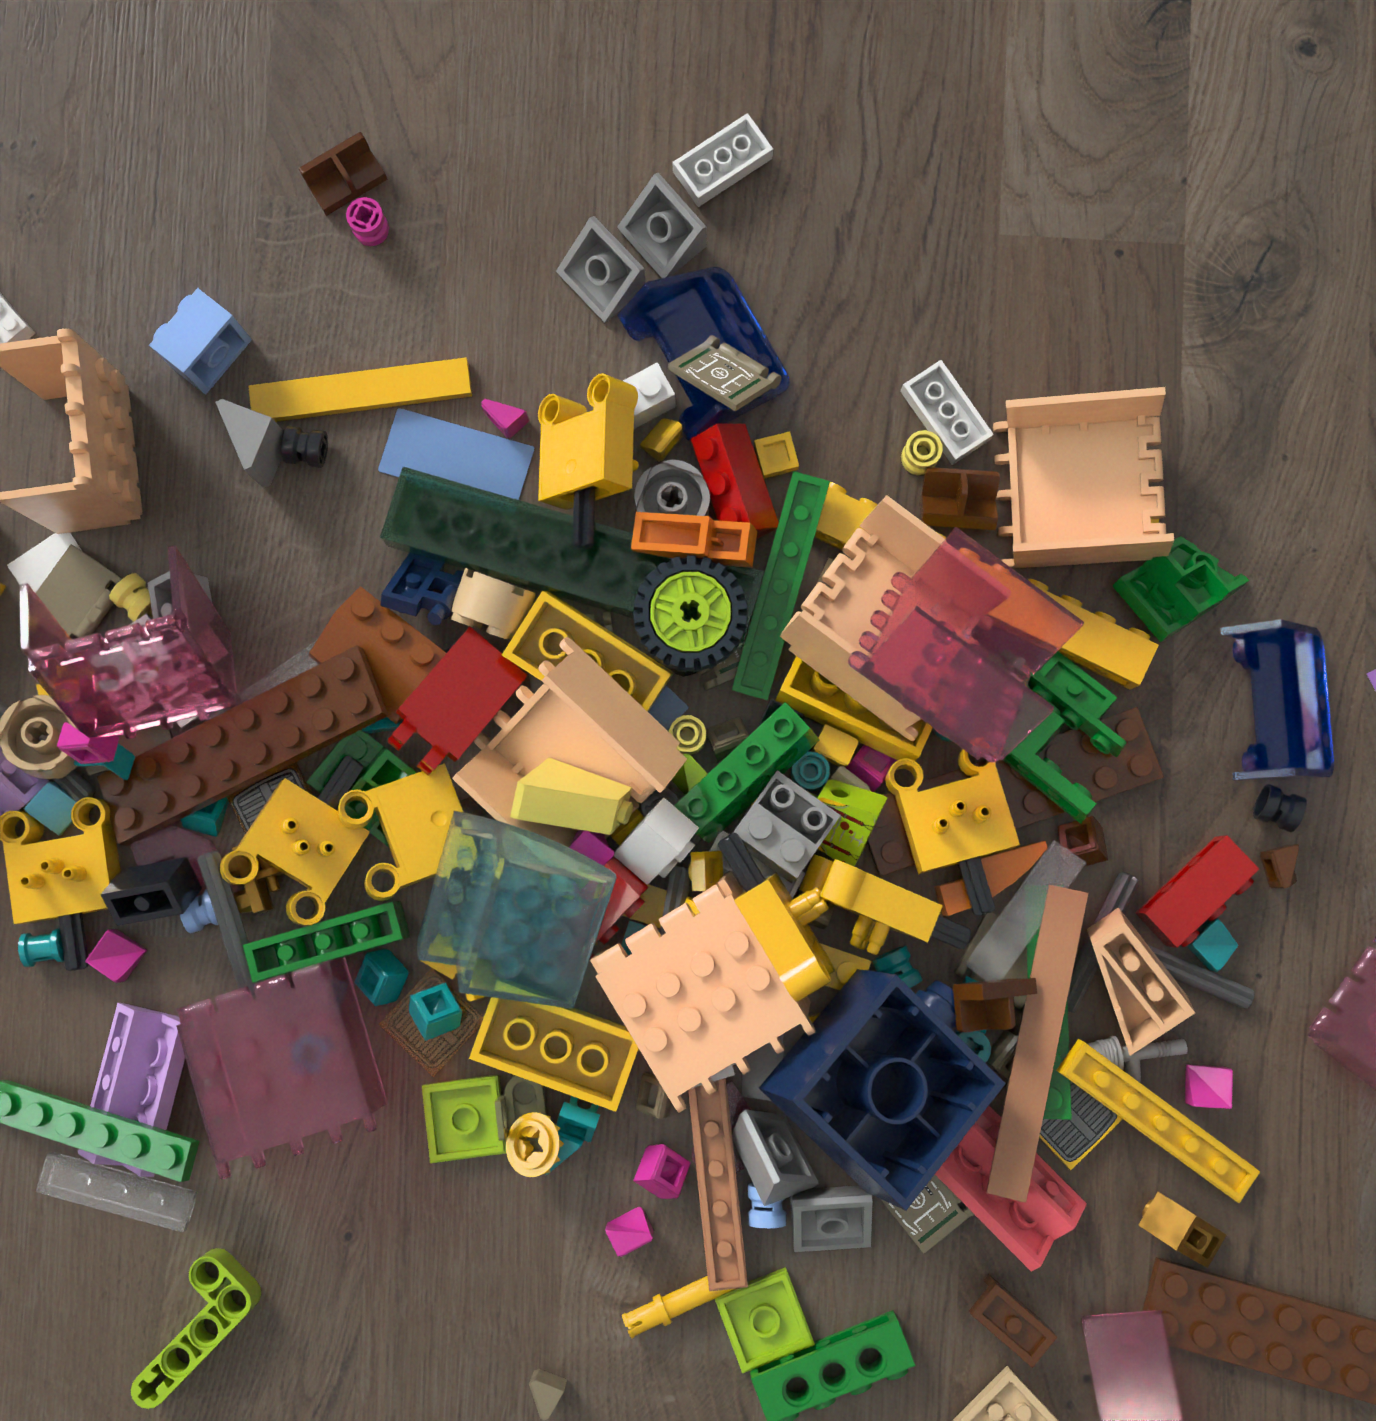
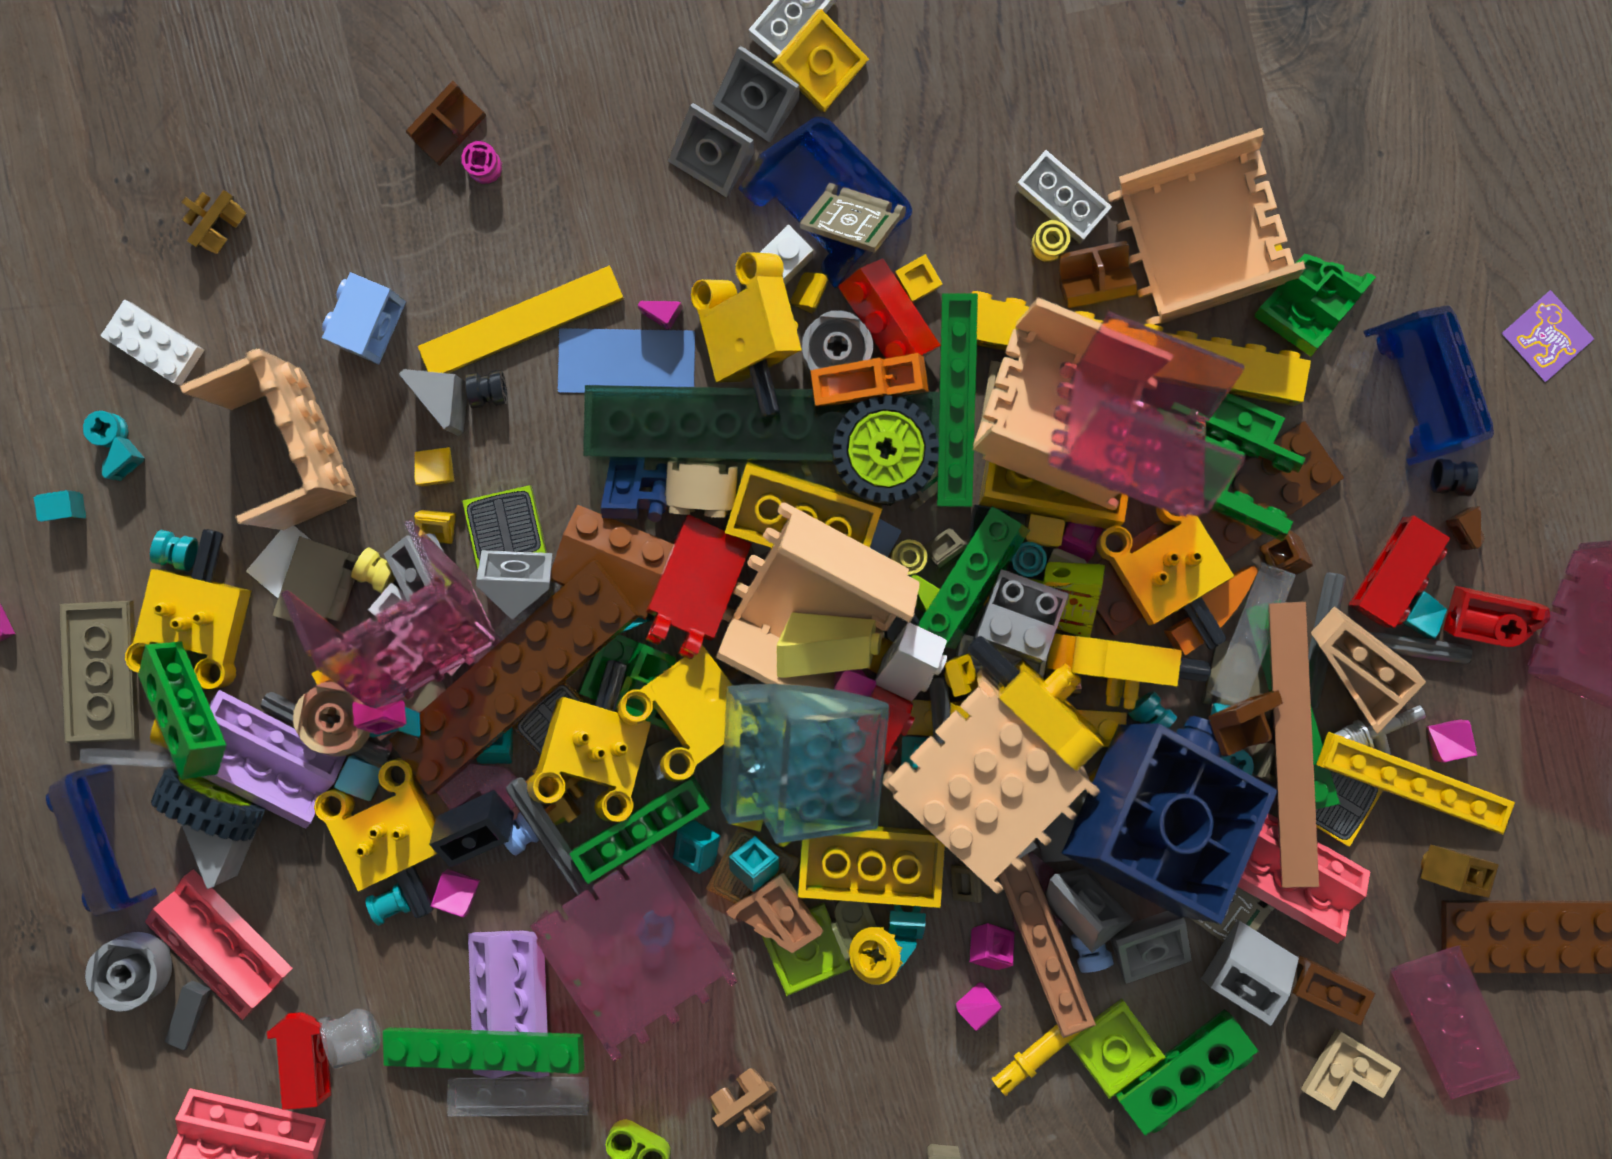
camera: 15 degrees left, 5 degrees up
(69, 215) = (204, 233): none -> pearl gold hips
(214, 568) = (437, 523): none -> yellow slope
(228, 511) = (433, 467): none -> yellow slope
(270, 642) = (514, 578): none -> light grey slope
(282, 591) = (504, 522): none -> tile
(334, 1269) = (730, 1110): none -> medium nougat hips
(381, 881) = (659, 749): none -> dark grey slope
(445, 1072) = (778, 914): none -> nougat wing
(737, 212) = (821, 60): none -> yellow tile
(932, 1277) = (1252, 972): none -> light grey slope
(1274, 960) = (1481, 614): none -> red piece

